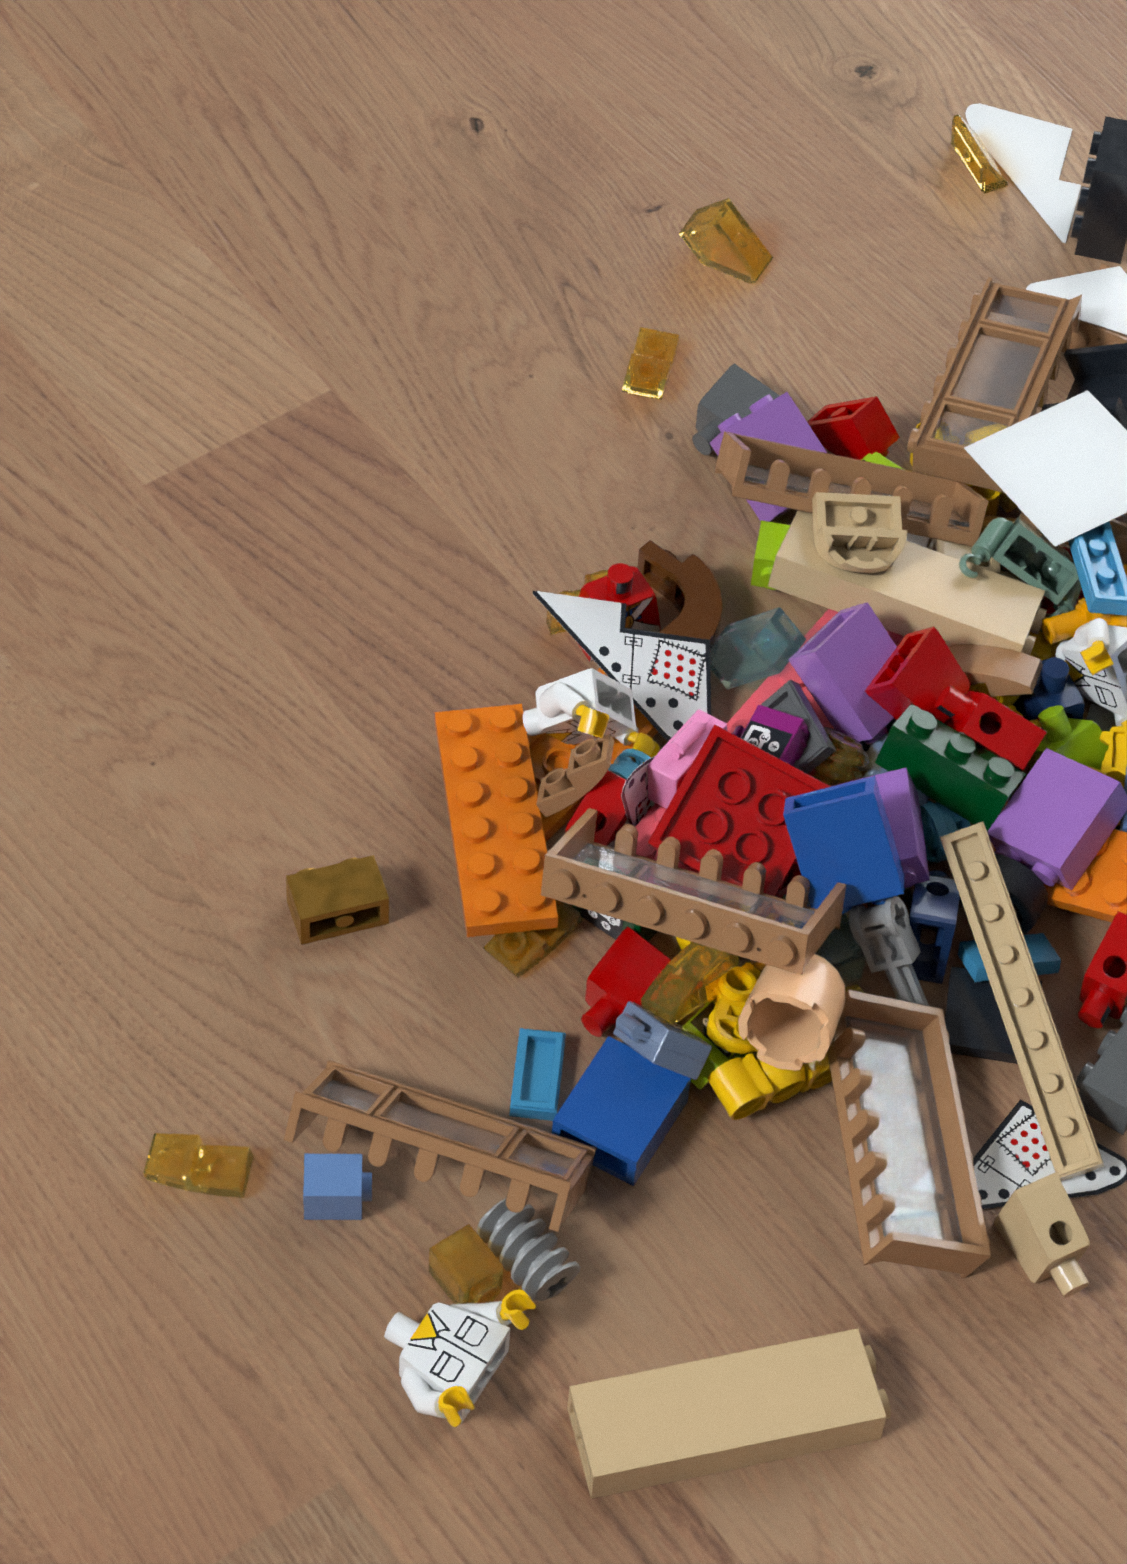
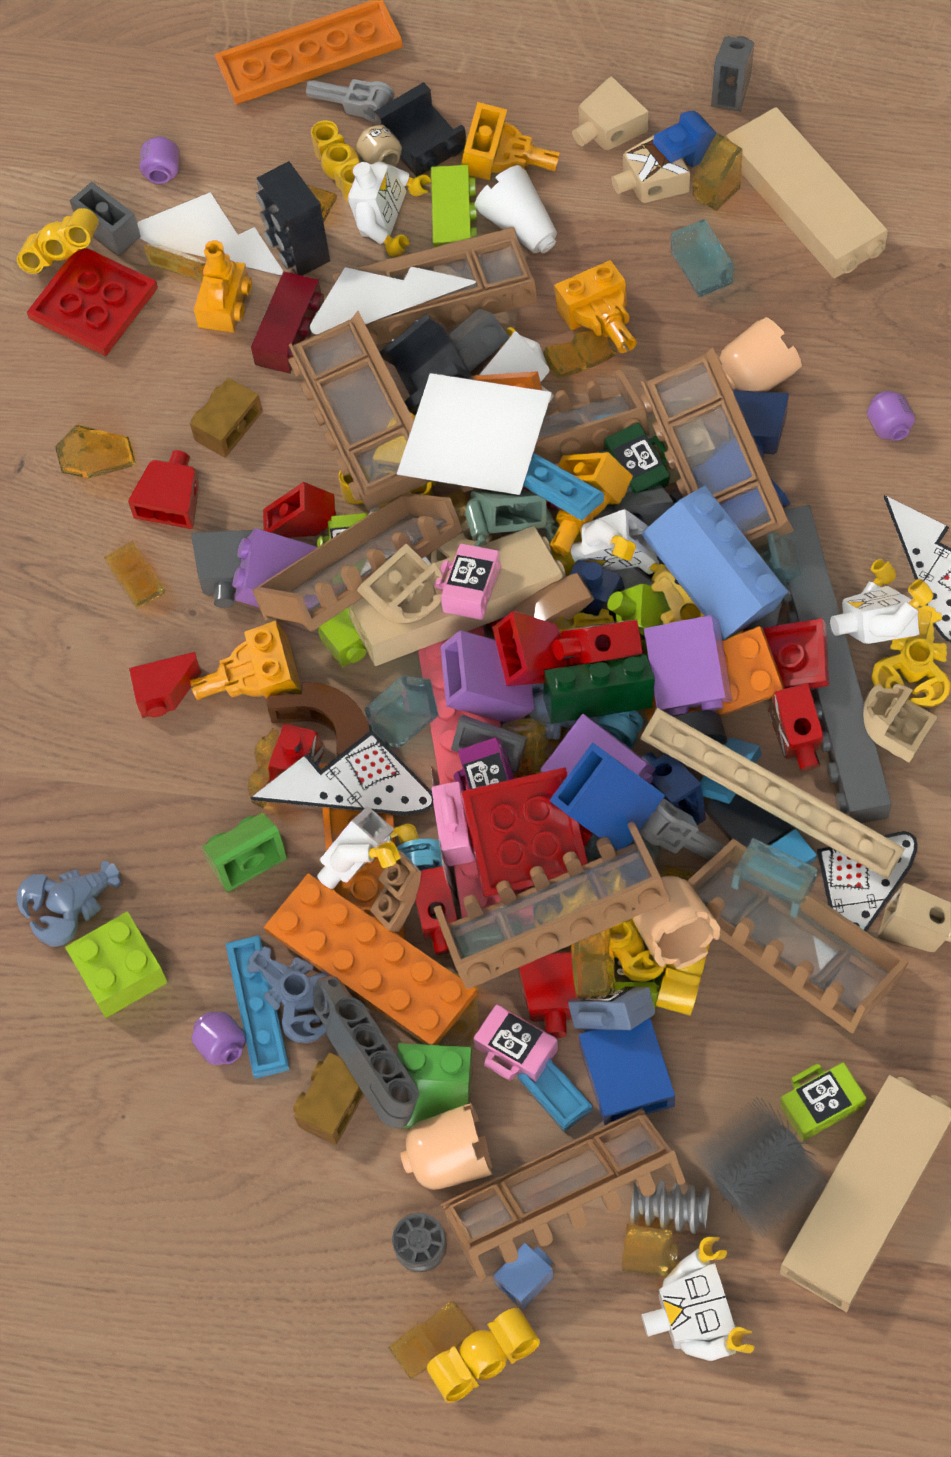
camera: 35 degrees left, 10 degrees up
(224, 1212) = (483, 1355): none -> yellow piece
(275, 1076) = (419, 1242): none -> dark grey wheel
(280, 638) = (116, 964): none -> lime brick
(297, 765) = (218, 1038): none -> medium lavender head
(300, 556) = (66, 898): none -> sand blue animal
(361, 778) = (258, 1017): none -> dark azure tile
(387, 1022) = (447, 1149): none -> light nougat cylinder
(400, 879) = (366, 1053): none -> dark grey piece
(404, 794) = (292, 990): none -> sand blue animal
(435, 968) = (440, 1075): none -> bright green slope
(488, 646) = (244, 851): none -> bright green slope
(545, 1001) = (514, 1045): none -> bright pink piece
(576, 463) = (163, 683): none -> red slope
(642, 1282) = (759, 1167): none -> dark grey piece
(672, 515) = (255, 668): none -> light orange brick
(753, 322) = (167, 492): none -> red torso
(773, 1298) = (822, 1099): none -> lime piece
(864, 128) = (92, 300): none -> red plate
(875, 306) = (226, 417): none -> pearl gold brick
(882, 54) = (57, 241): none -> yellow piece
(925, 575) = (469, 581): none -> bright pink piece
(941, 1062) = (776, 874): none -> clear light blue panel
(947, 71) = (117, 223): none -> dark grey brick
(989, 203) = (222, 290): none -> light orange brick
(989, 1079) = (795, 846): none -> dark azure tile
(1019, 265) = (286, 321): none -> dark red brick
(1052, 66) = (159, 160): none -> medium lavender head

